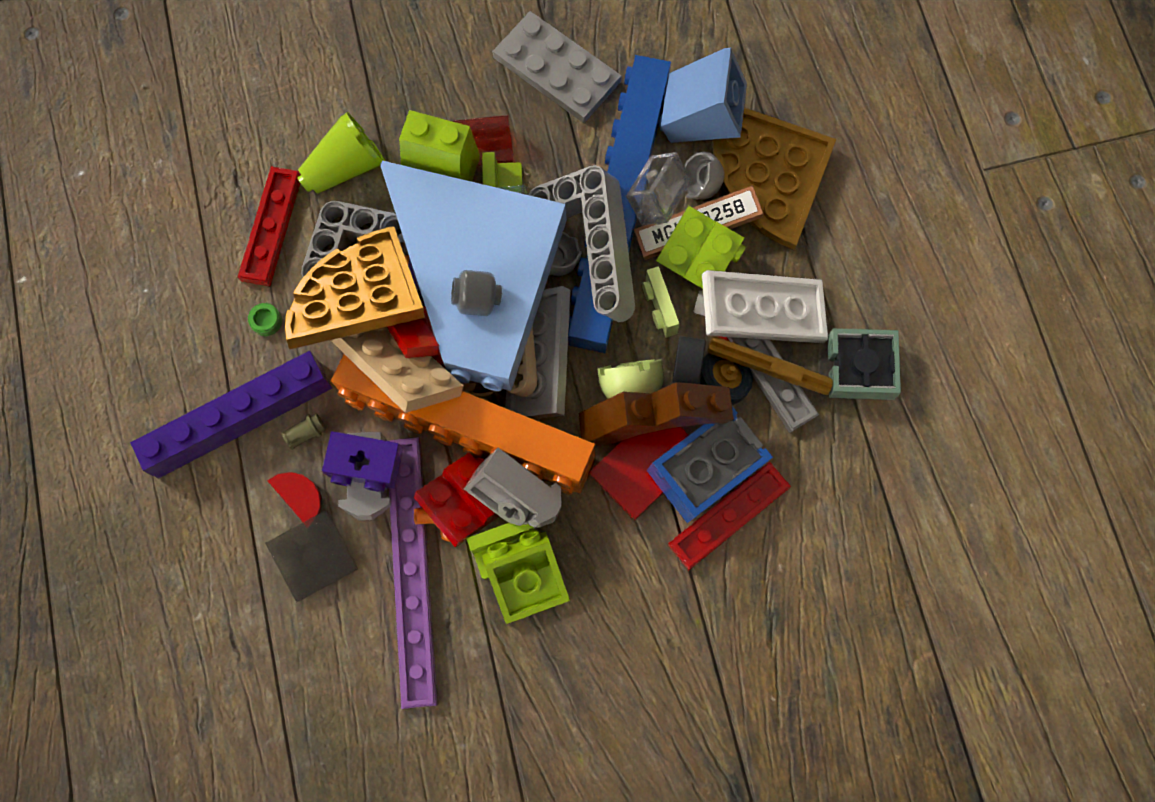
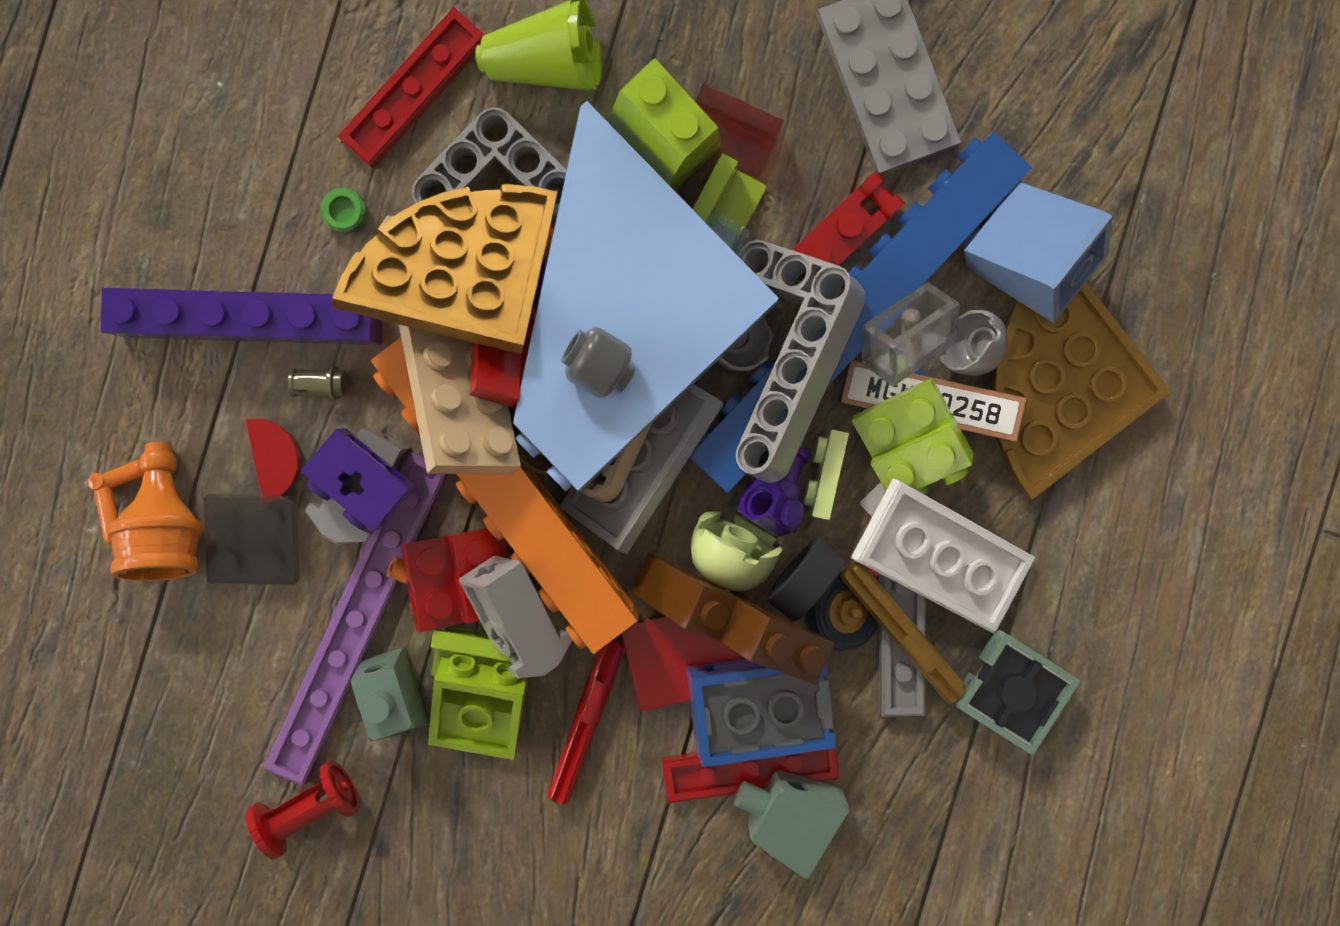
camera: 25 degrees right, 15 degrees up
(245, 583) = (157, 531): none -> orange piece
(444, 718) = (272, 827): none -> red hose
(464, 605) = (388, 696): none -> sand green torso
(583, 152) = (850, 223): none -> red plate
(602, 547) = (586, 719): none -> red axle
(639, 335) = (776, 504): none -> dark purple connector
(776, 525) = (793, 818): none -> sand green torso

